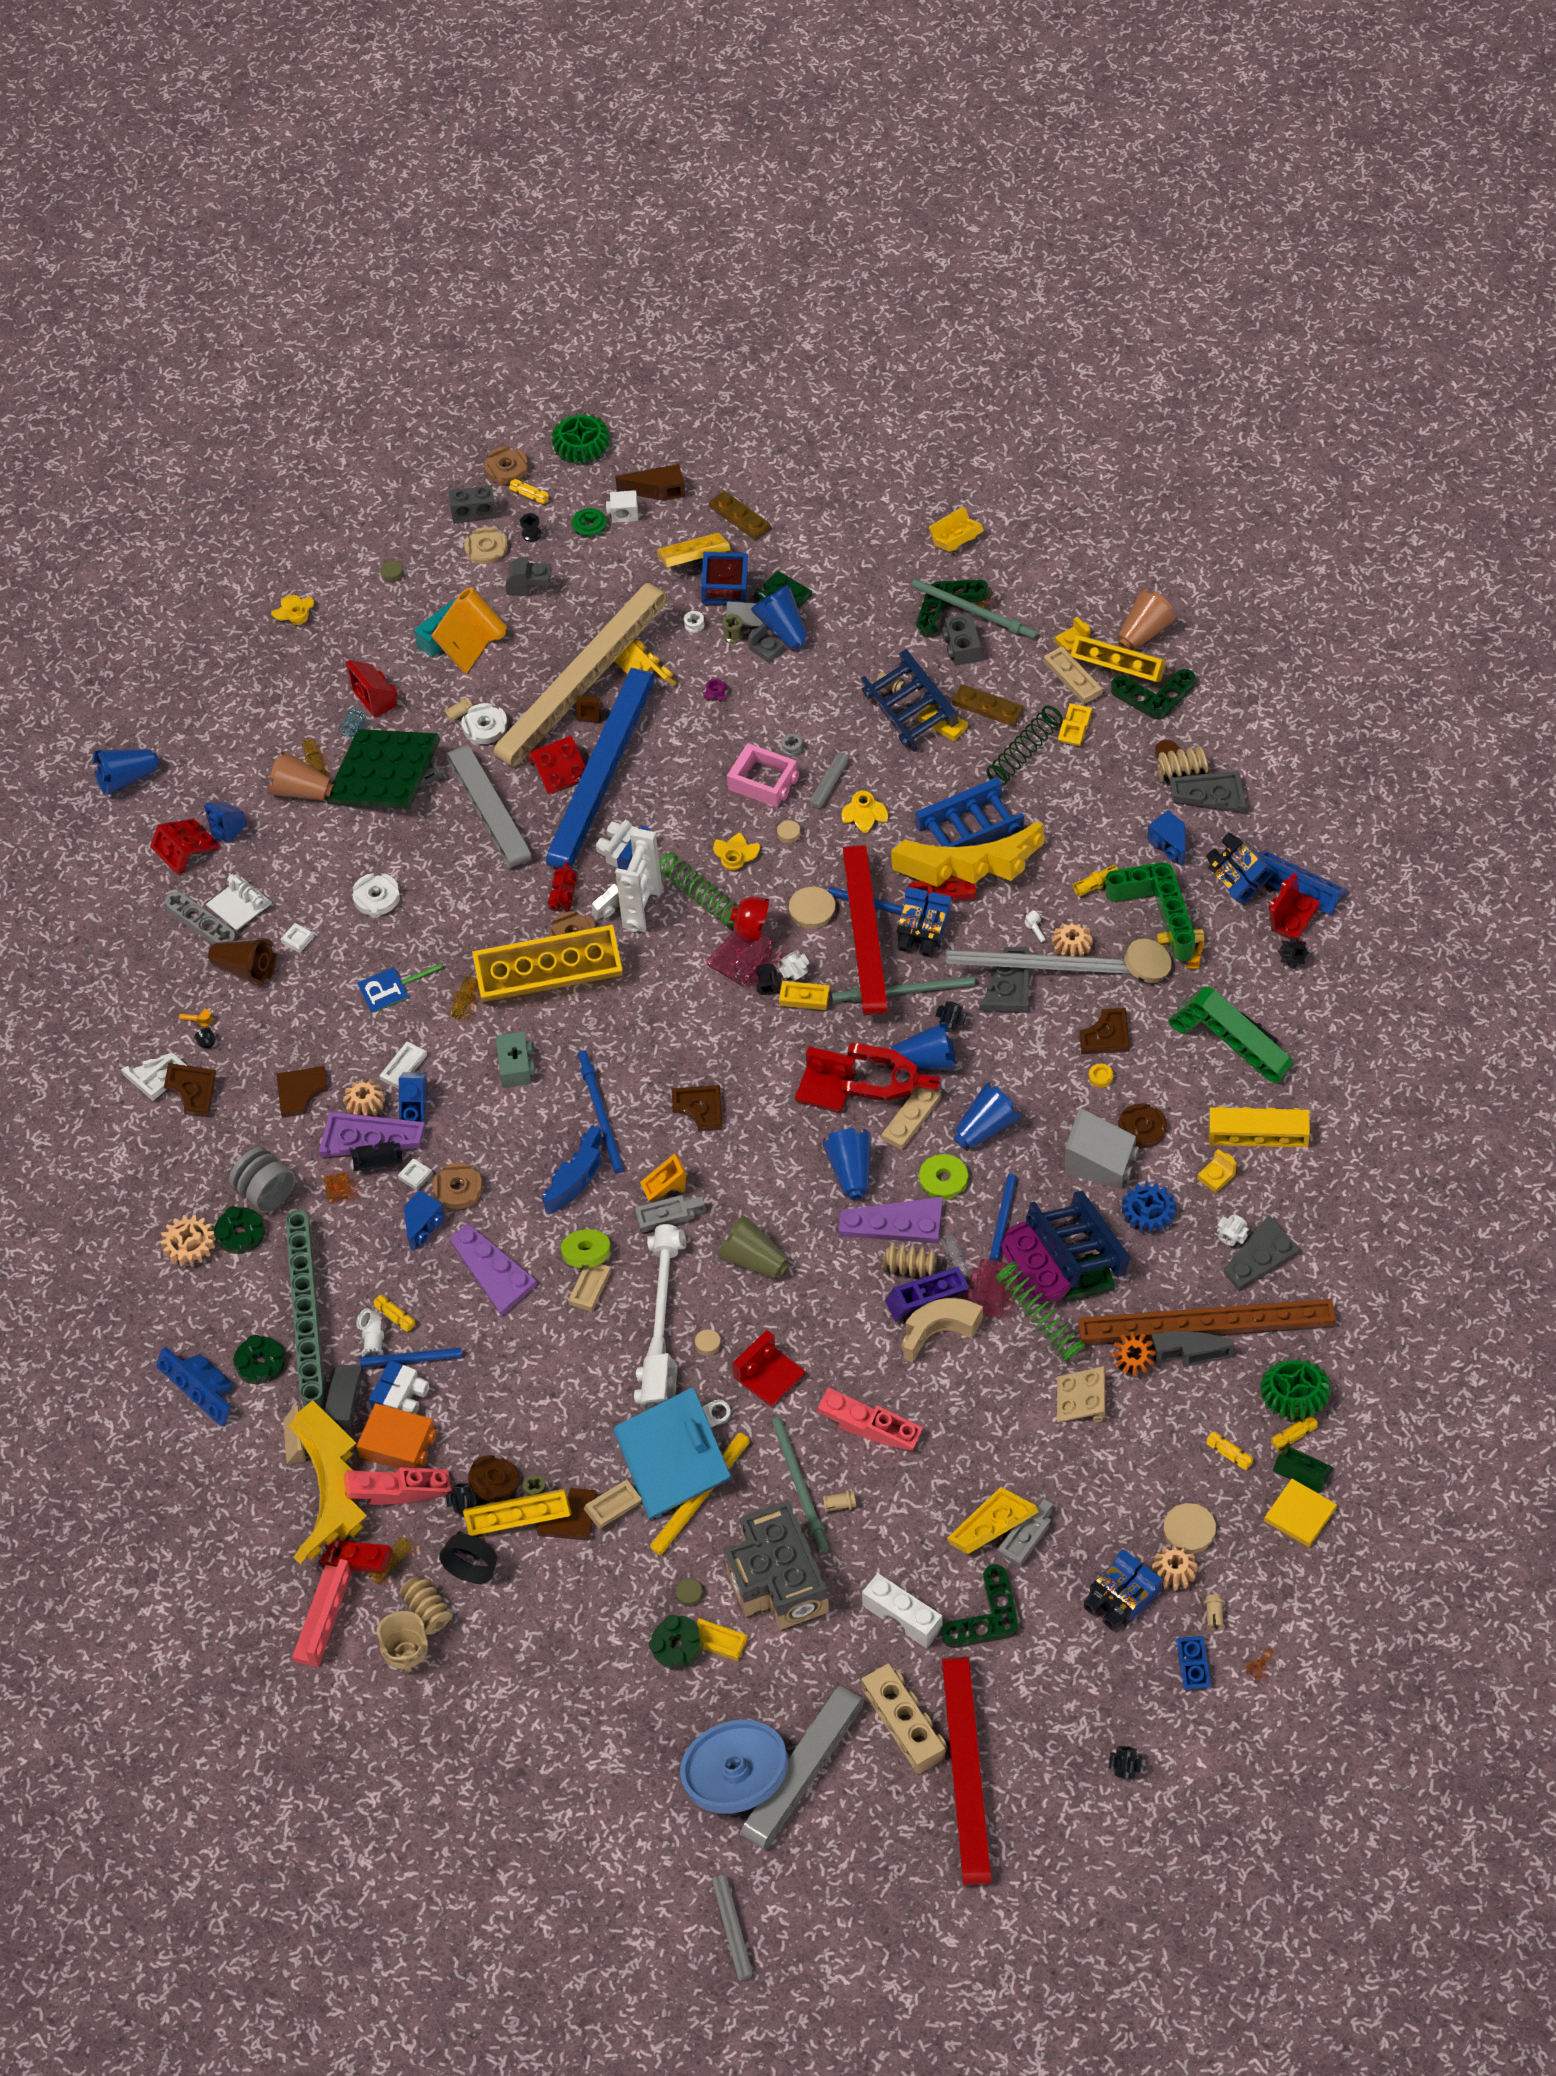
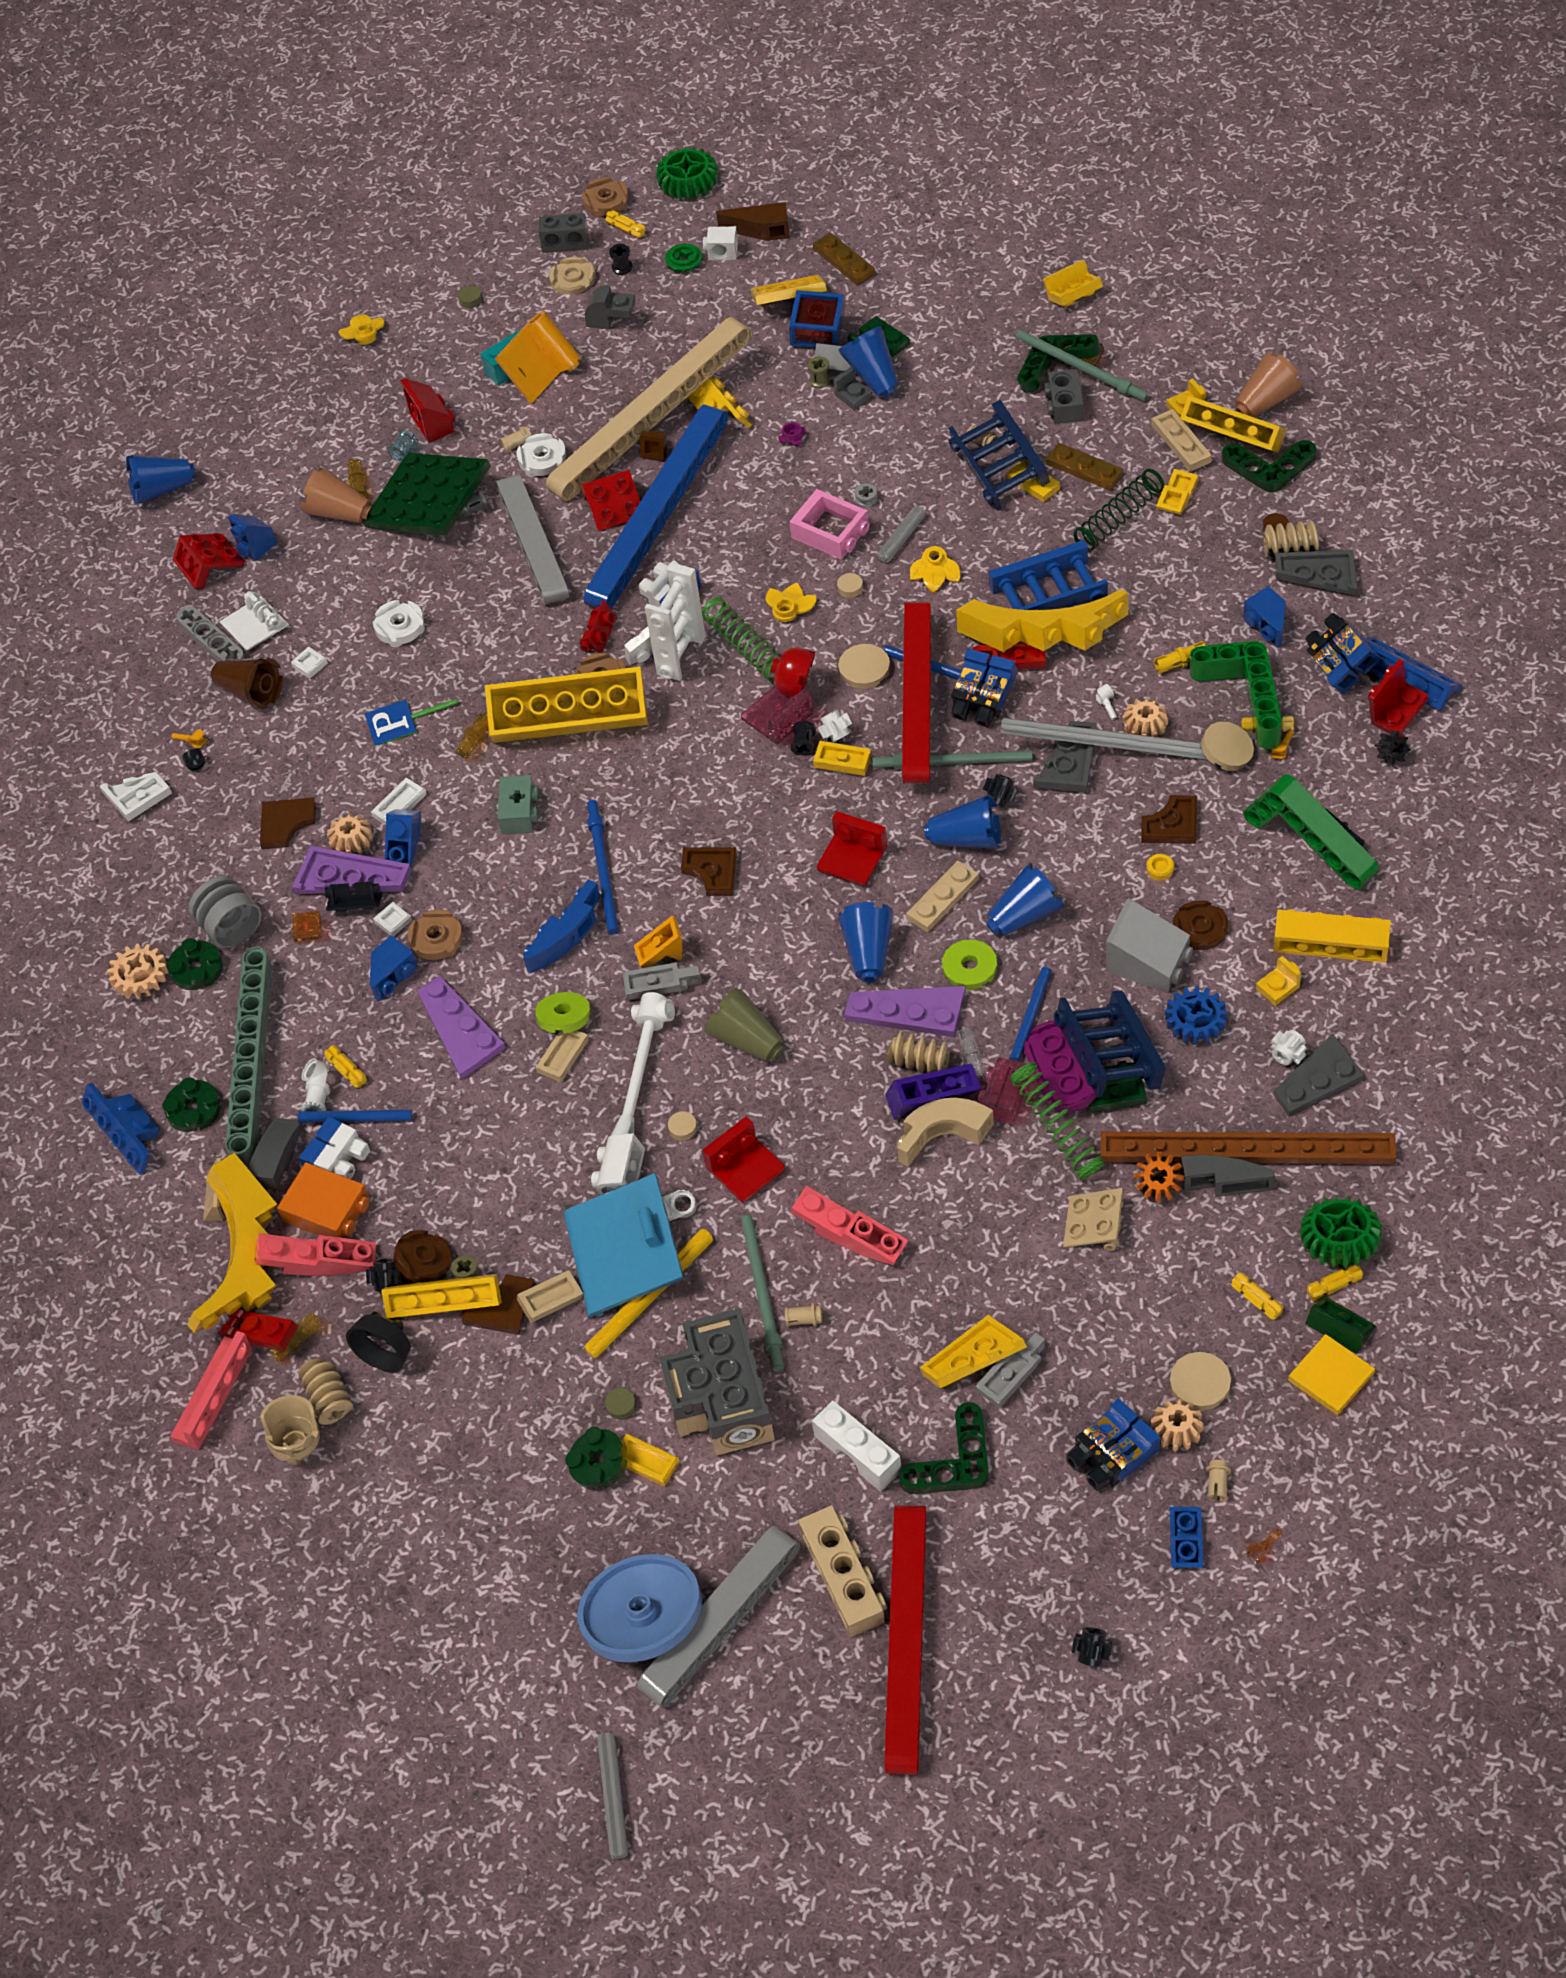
camera: 10 degrees right, 0 degrees up
(193, 1086) = (171, 808): reddish brown tile -> none
(696, 627) = (777, 358): white bush -> none
(895, 1089) = (935, 839): red piece -> none

